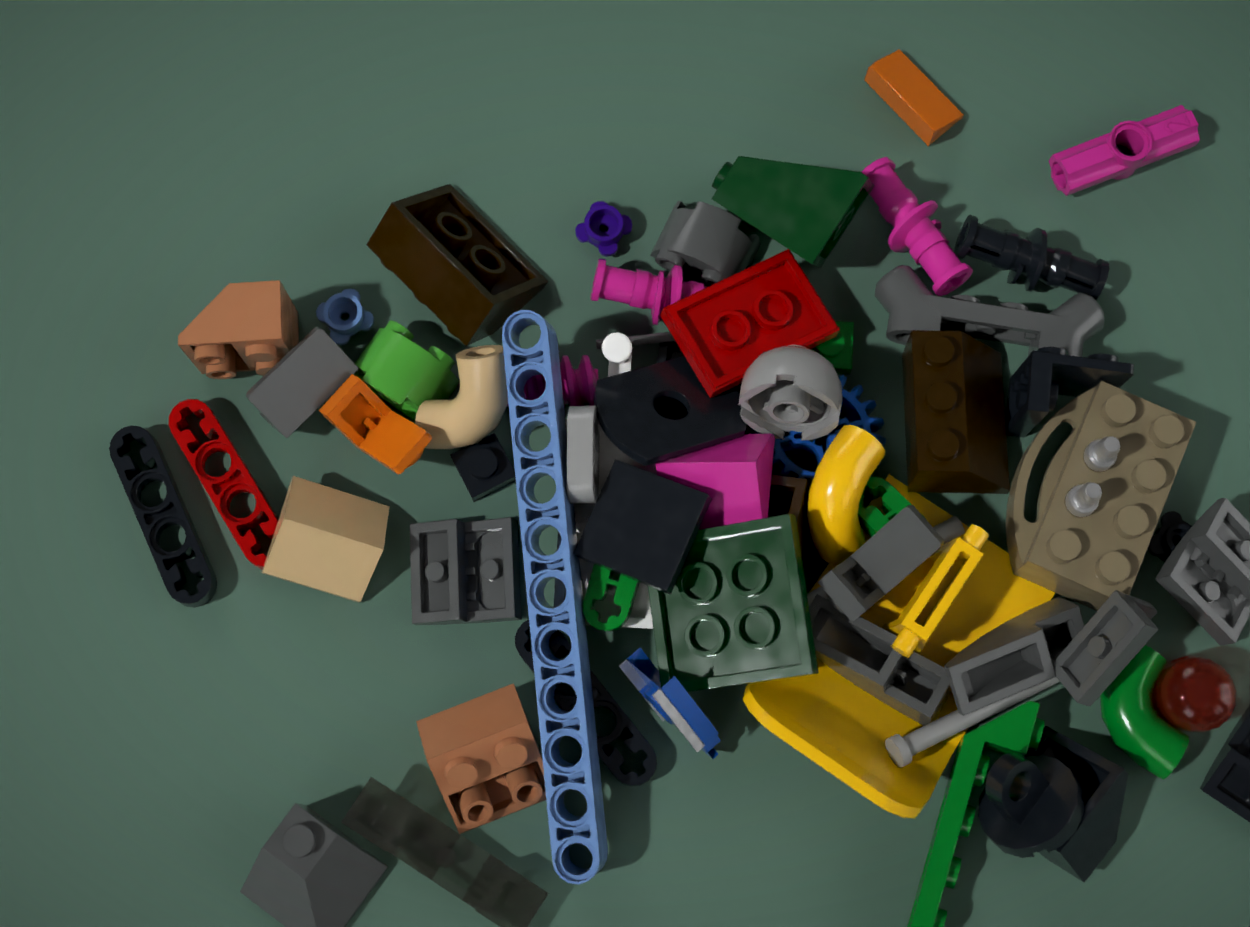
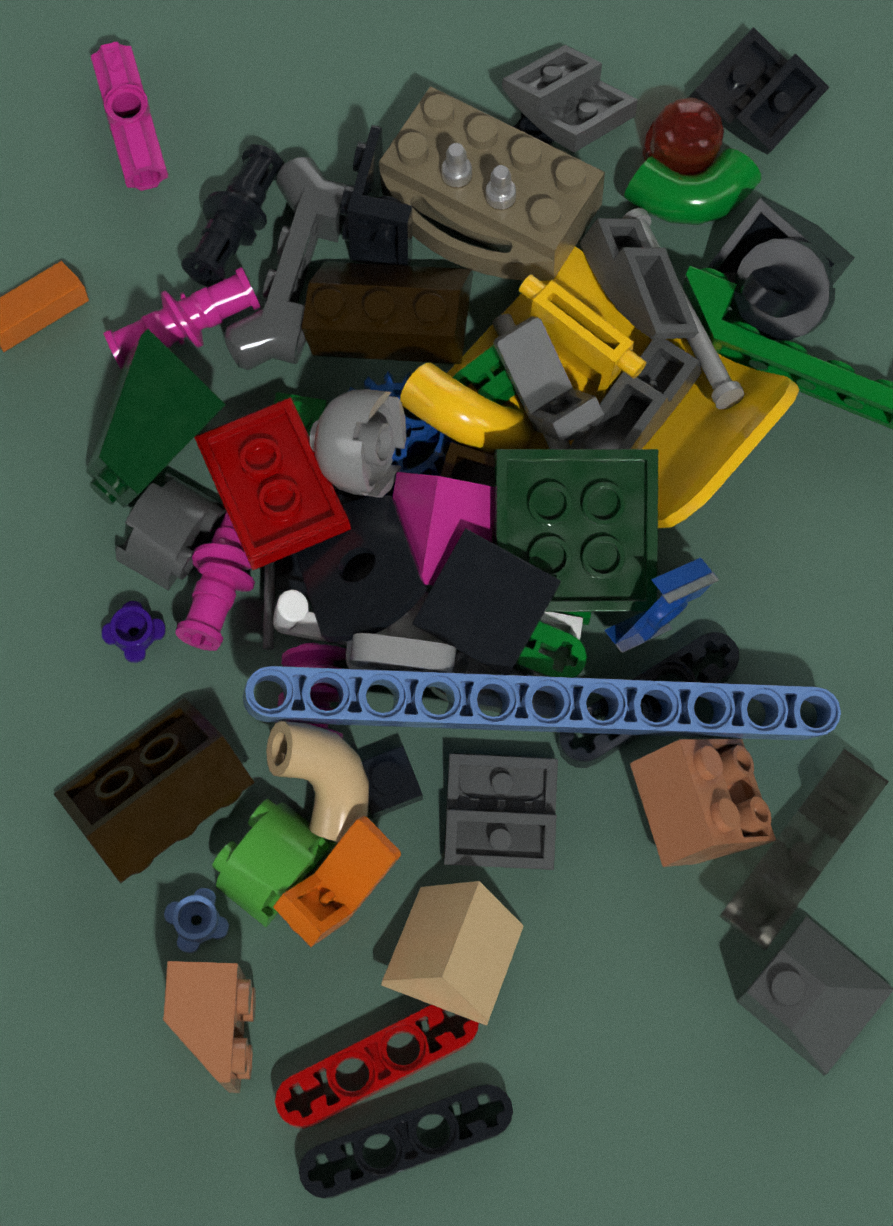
camera: 85 degrees left, 5 degrees down
(301, 382) = (279, 961): dark grey panel -> none
(1105, 646) = (645, 195): dark grey panel -> none

